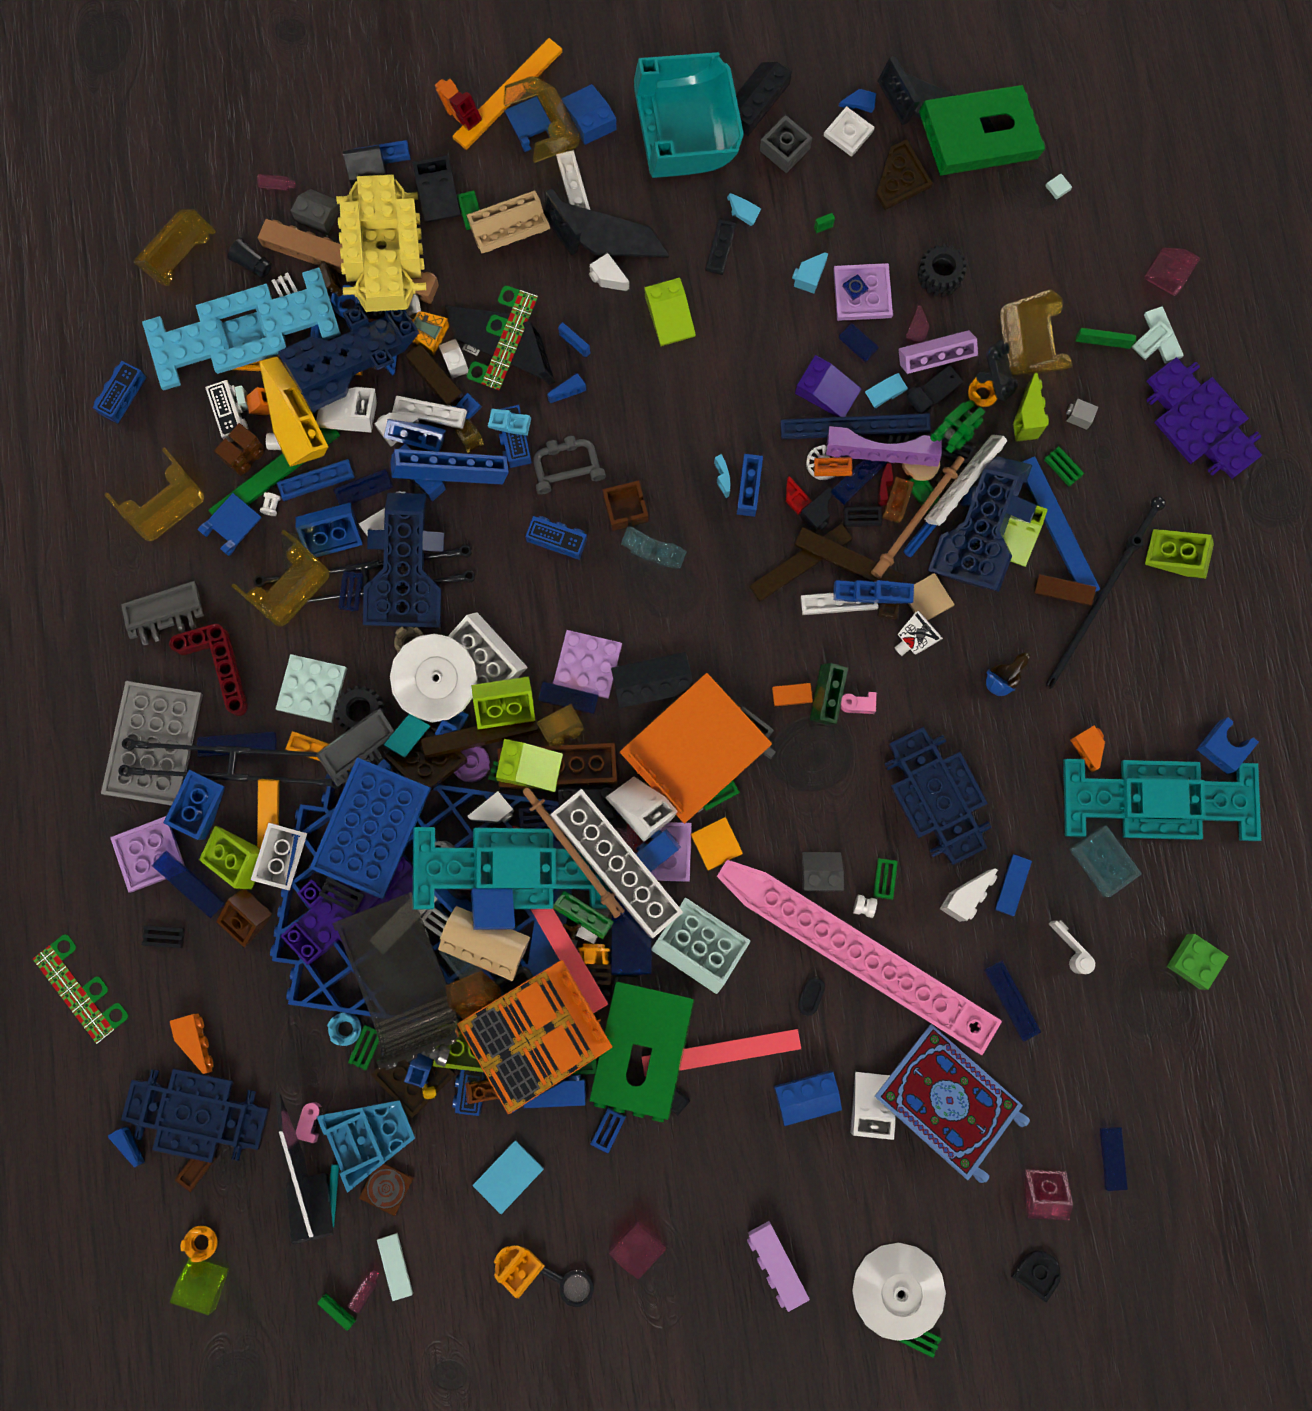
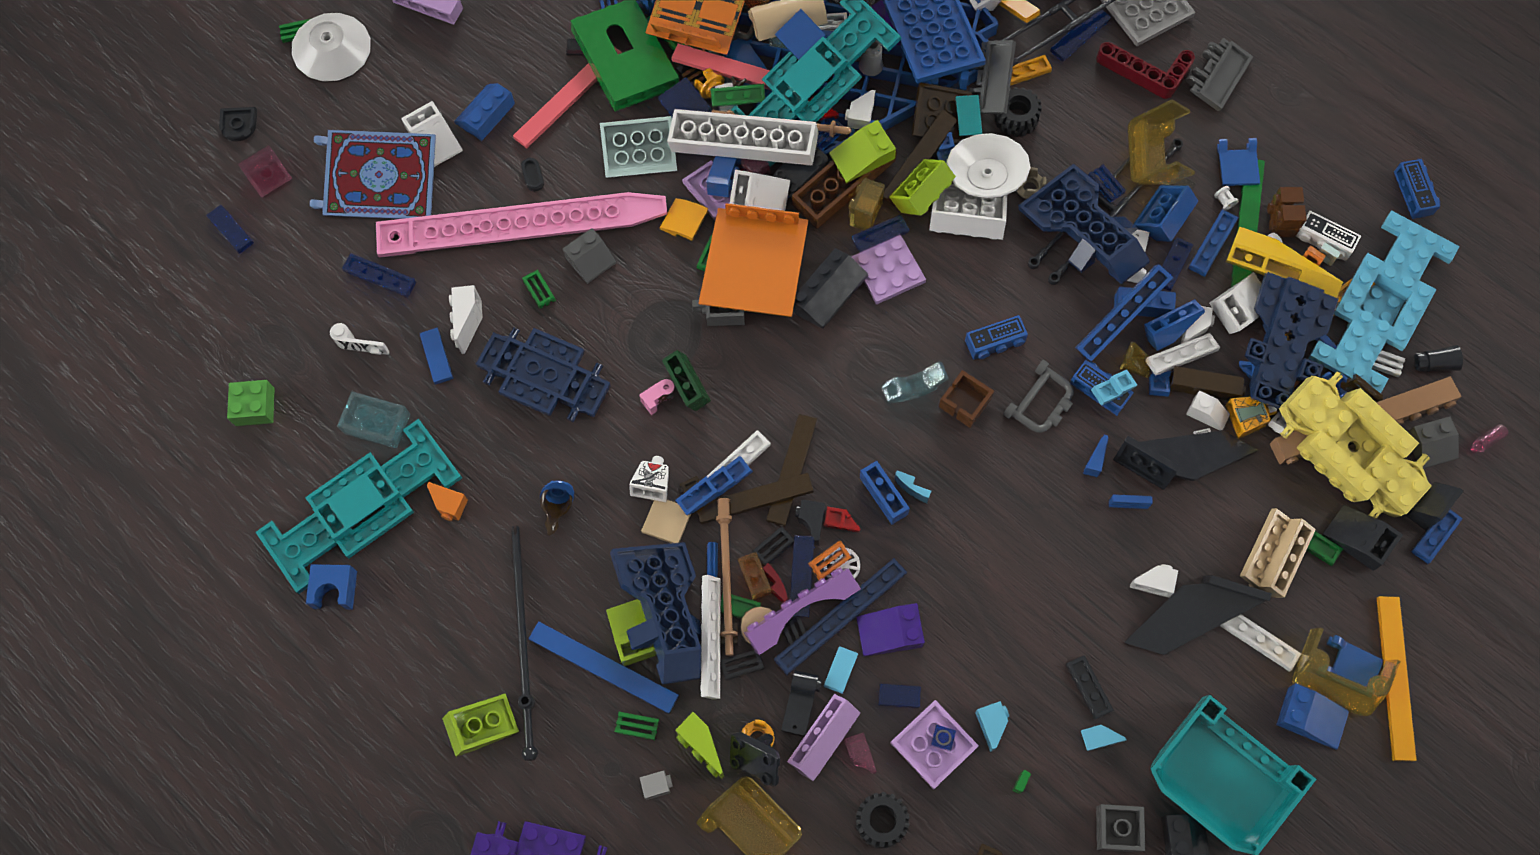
camera: 145 degrees right, 10 degrees down
(165, 507) = (1293, 153): clear yellow windscreen -> none
(173, 244) = (1504, 316): clear yellow windscreen -> none
(311, 688) = (1068, 105): light aqua plate -> none
(458, 104) = (1423, 620): dark red hips -> none
(476, 767) = (904, 141): medium lavender tile -> none
(510, 337) = (1194, 488): piece -> none
(669, 311) = (1077, 589): lime slope -> none
(792, 694) = (715, 364): orange tile -> none
(865, 906) = (534, 257): white wheel -> none
(965, 429) = (753, 665): green piece -> none
(1065, 590) = (557, 613): reddish brown tile -> none

